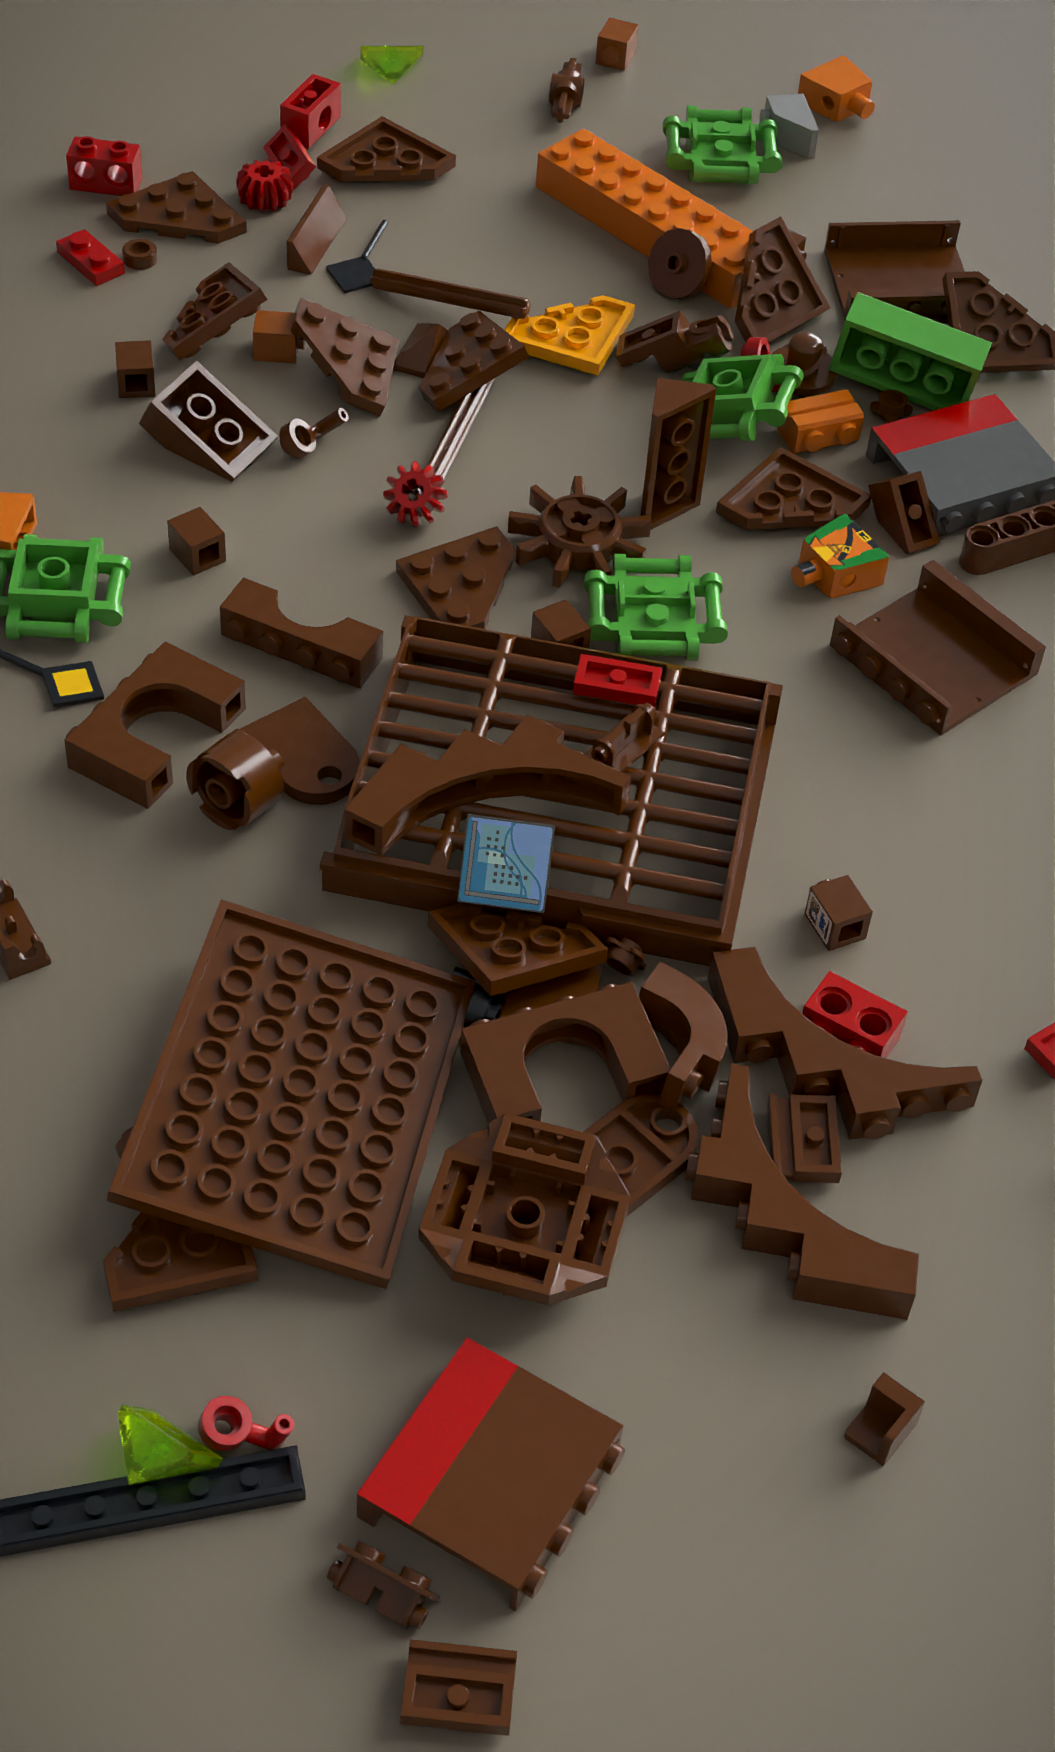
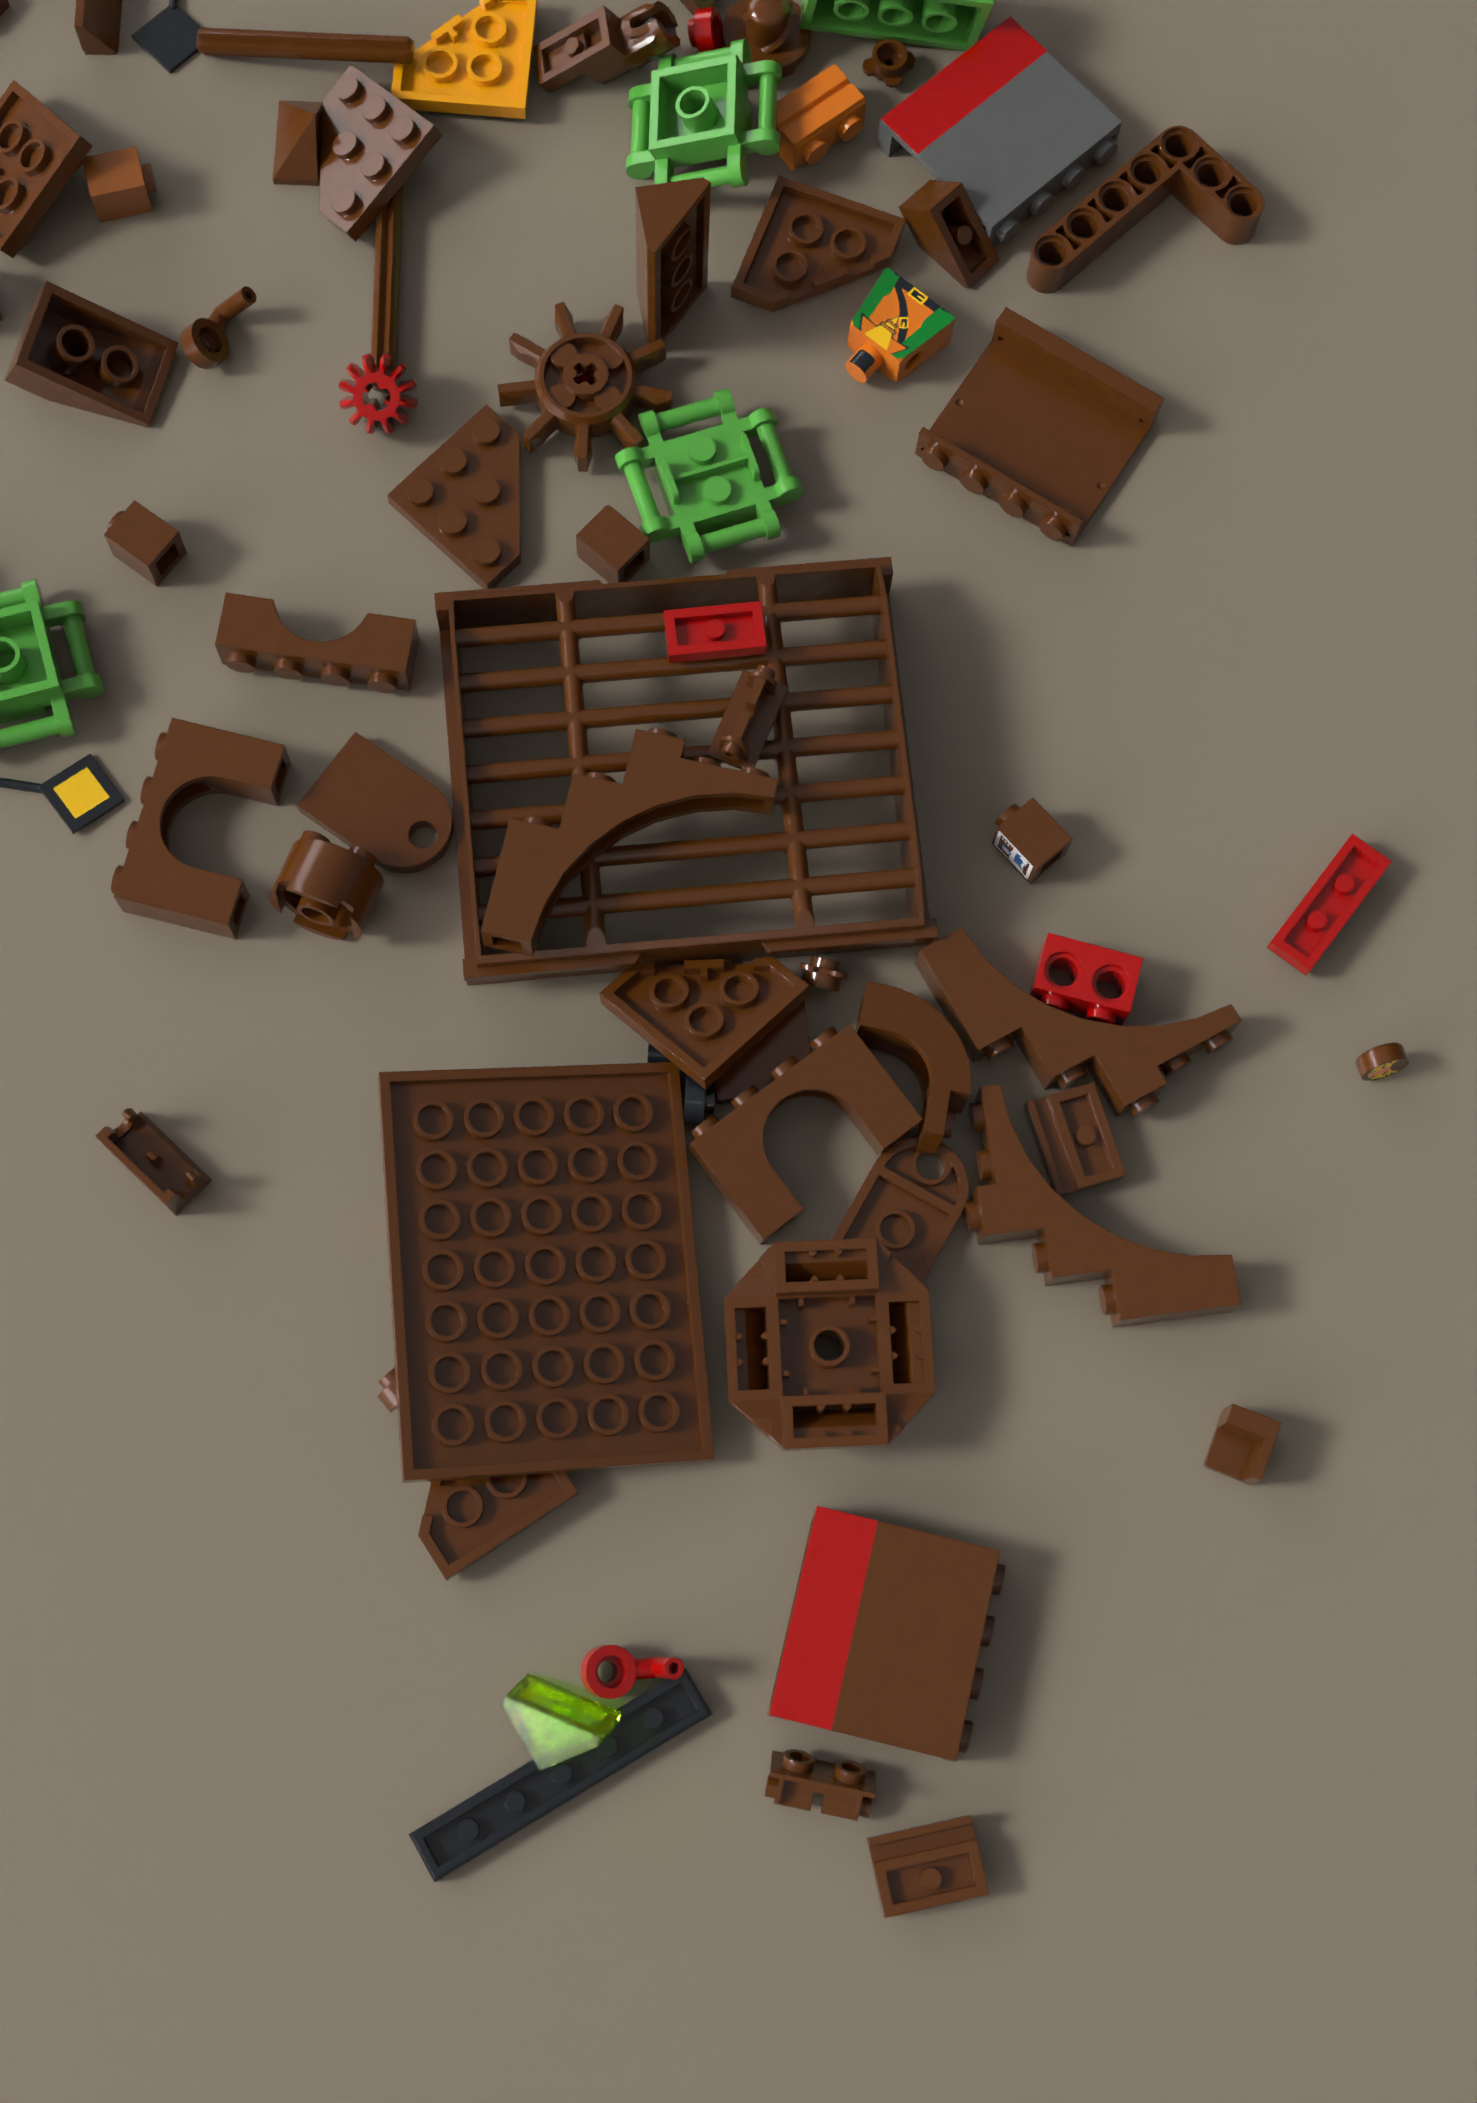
camera: 20 degrees left, 25 degrees up
(349, 351) = (218, 187): reddish brown plate -> none
(506, 863) = (672, 925): piece -> none

